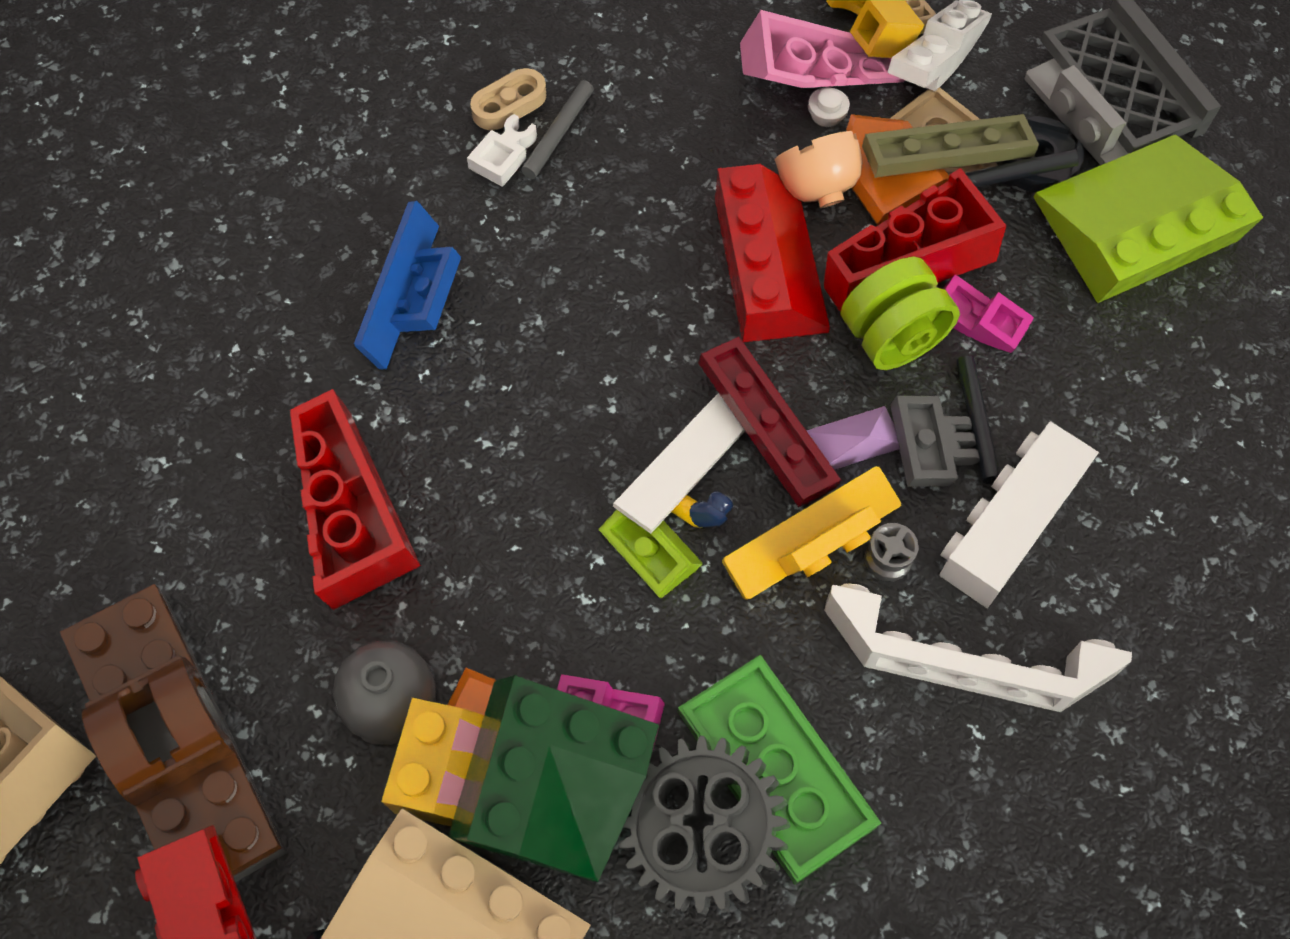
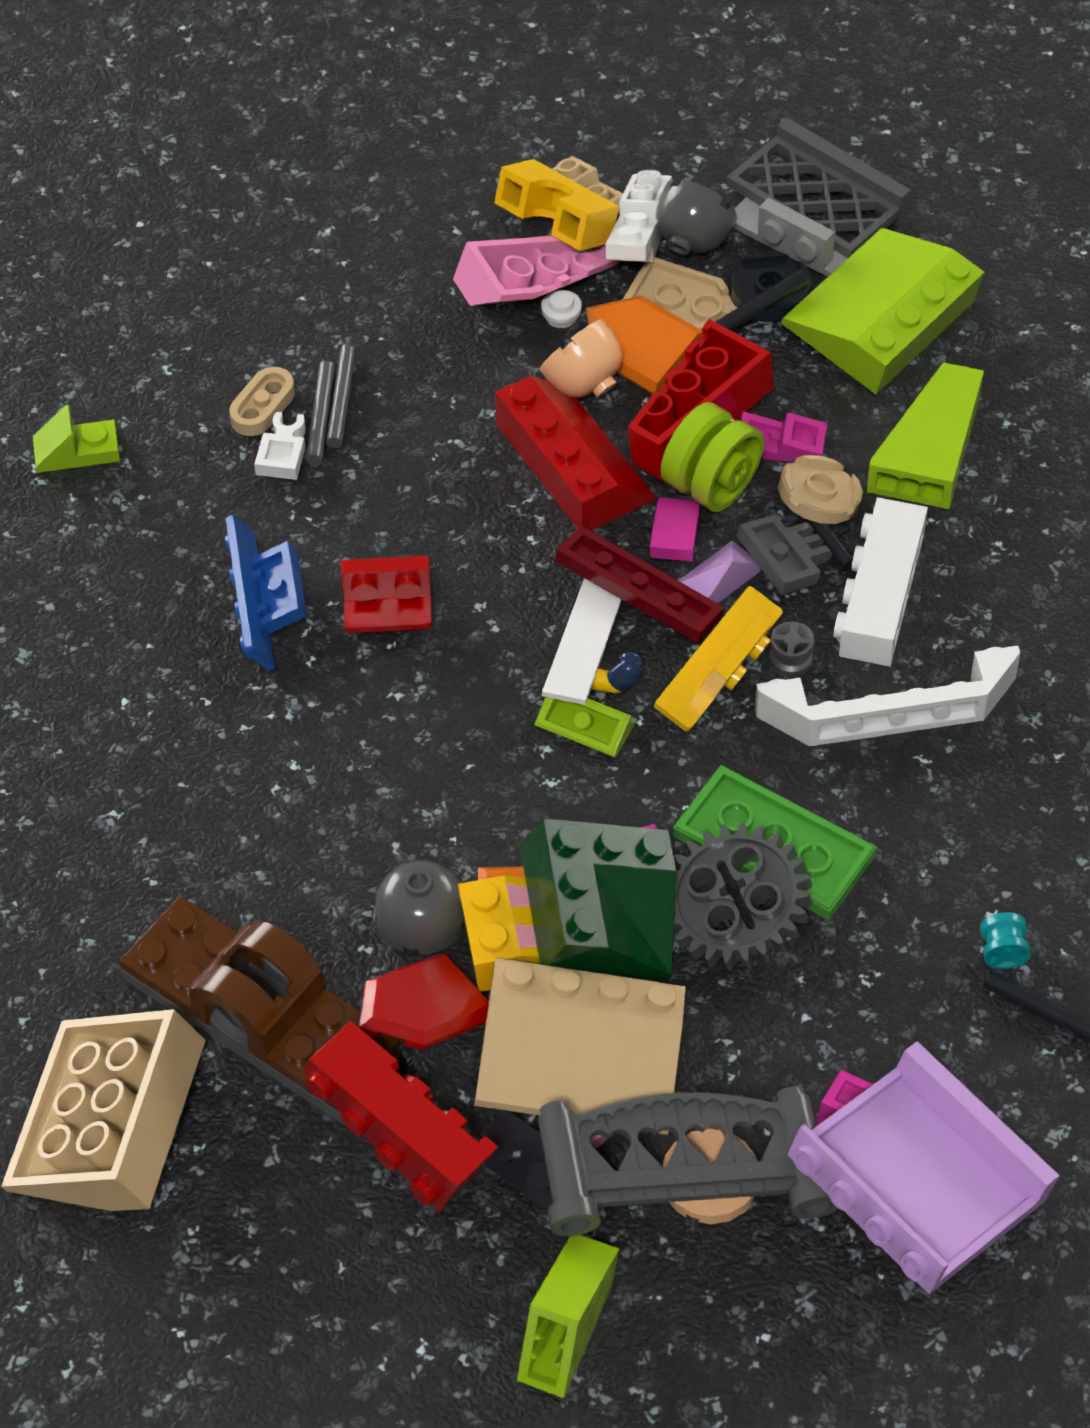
camera: 20 degrees left, 10 degrees down
(318, 810) = (422, 1003): none -> red tile
(327, 82) = (68, 446): none -> lime slope
(349, 515) = (315, 777): red wedge -> none
(522, 333) = (386, 594): none -> red bracket
(584, 120) = (341, 396): none -> dark grey bar
(832, 373) = (675, 529): none -> dark pink slope
(949, 145) = (690, 303): olive plate -> none
(992, 61) = (693, 218): none -> dark grey cylinder
(996, 386) = (819, 489): none -> tan tile
(1128, 379) = (929, 442): none -> lime slope

